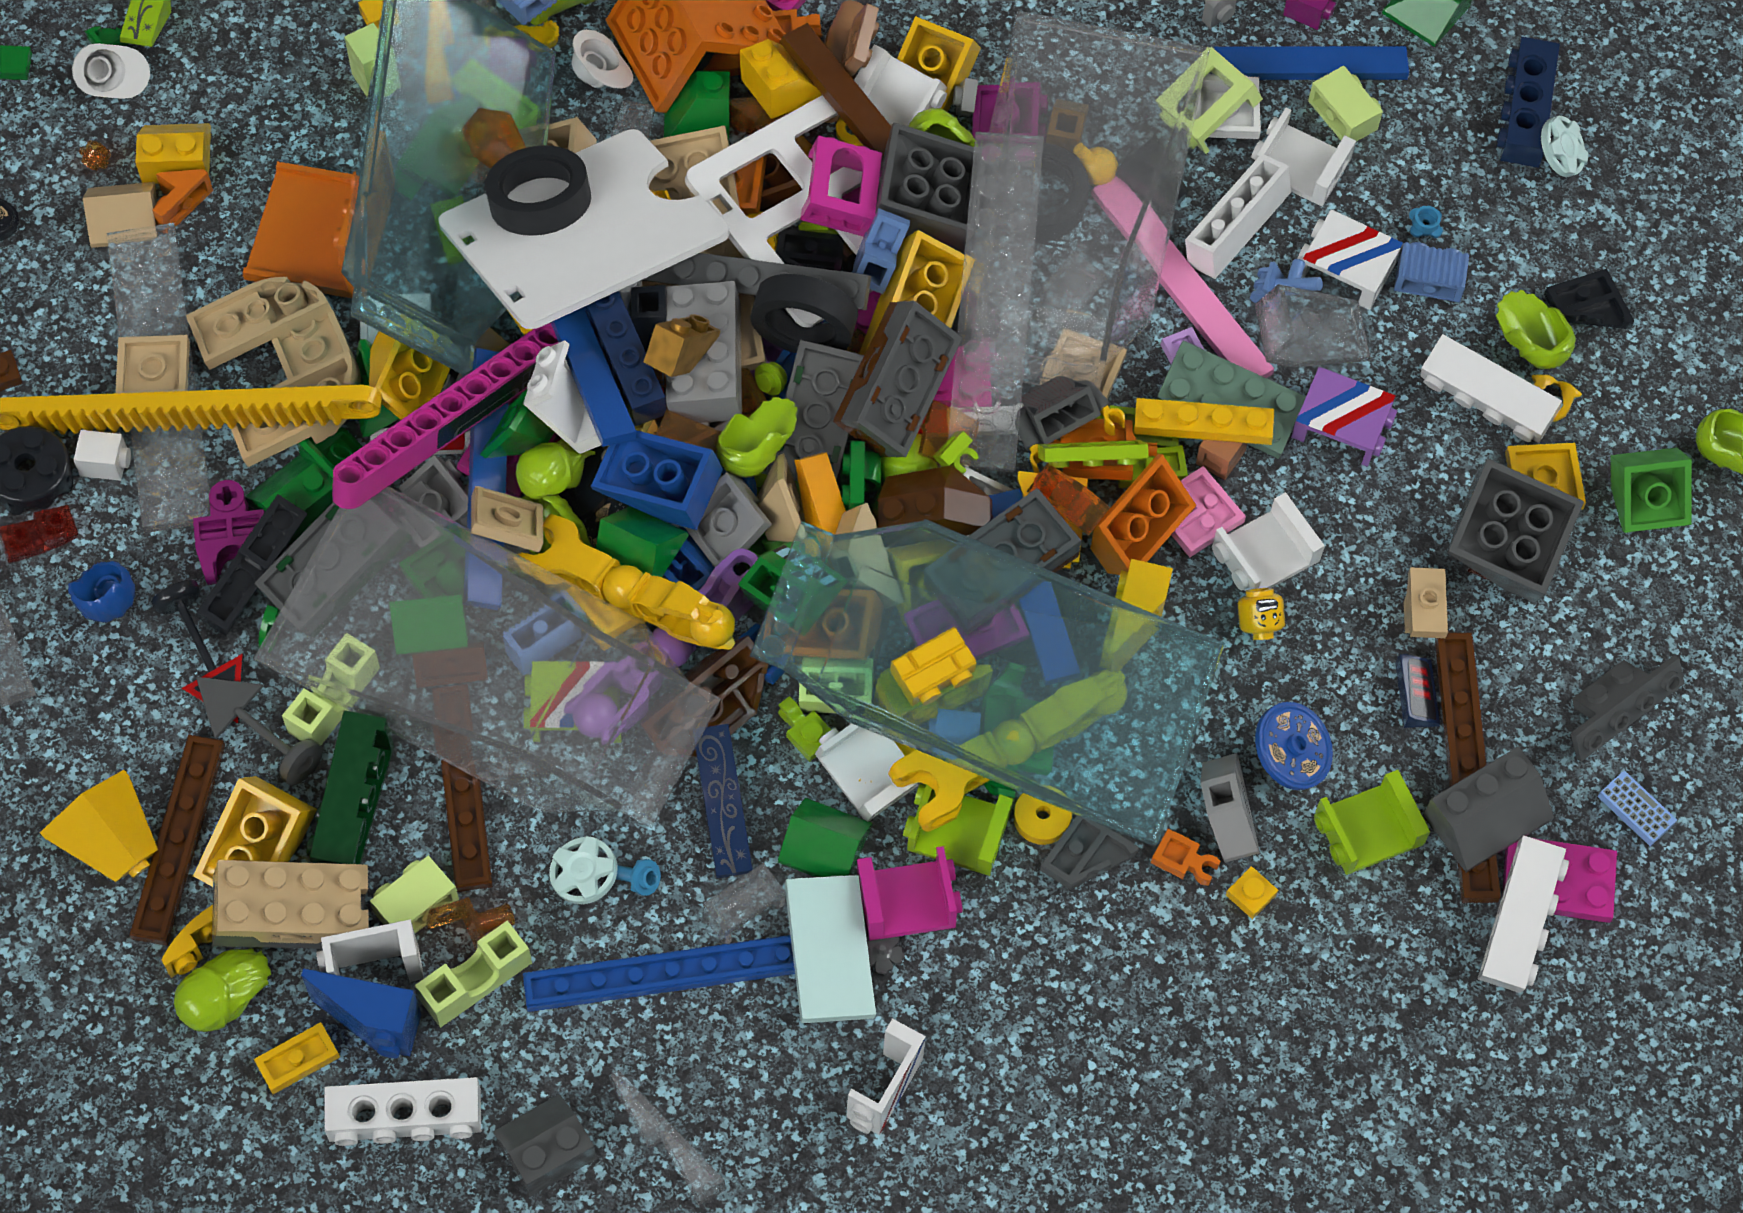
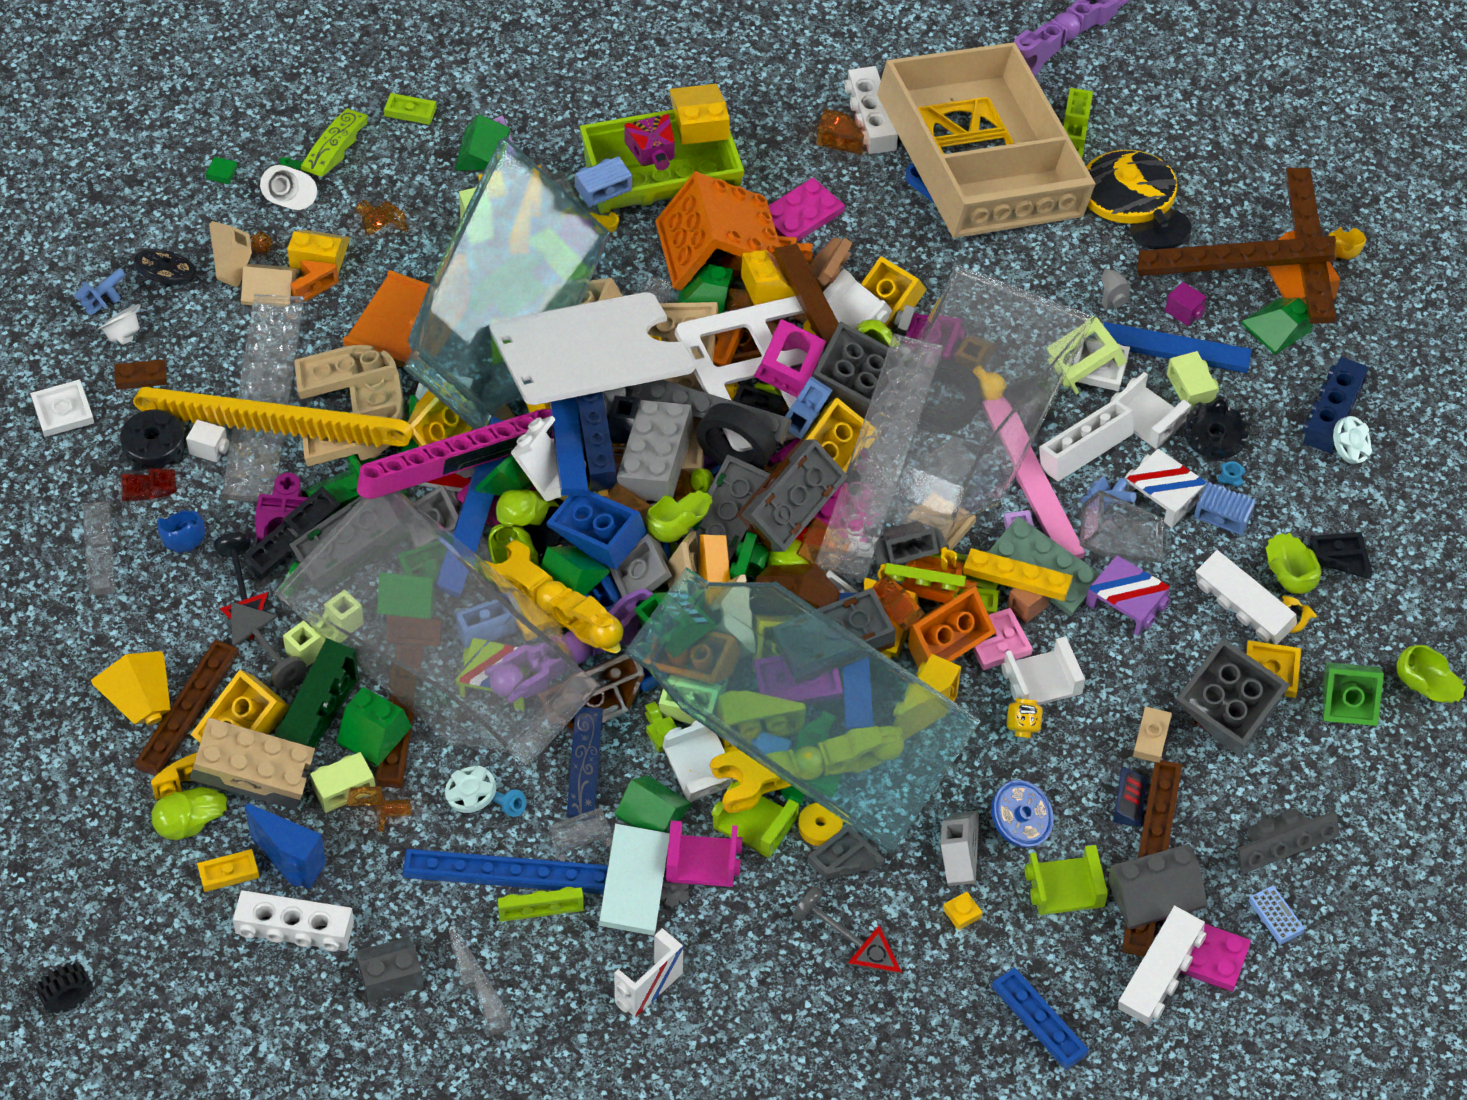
camera: 15 degrees right, 10 degrees down
(58, 179) = (230, 252): none -> tan slope
(152, 364) = (261, 383): tan plate -> none
(241, 89) = (378, 217): none -> clear orange bracket
(372, 945) = (303, 804): white panel -> none
(432, 815) = (372, 726): none -> green slope
(492, 135) = (547, 282): clear orange slope -> none
(495, 961) = (388, 836): yellowish green arch -> none
(507, 518) = (480, 533): tan plate -> none
(542, 216) = (565, 300): black tyre -> none
(598, 61) = (641, 245): white piece -> none
(680, 344) = (636, 436): pearl gold slope -> none
(718, 1010) = (540, 904): none -> lime plate
(934, 667) = (759, 692): yellow brick -> none
(953, 449) = (821, 553): lime tile -> none
(1157, 976) = (872, 954): none -> dark grey piece
(1179, 854) = (915, 872): orange plate -> none
(1388, 1017) = (1040, 1018): none -> blue plate
(1395, 148) = (1216, 416): none -> black plate

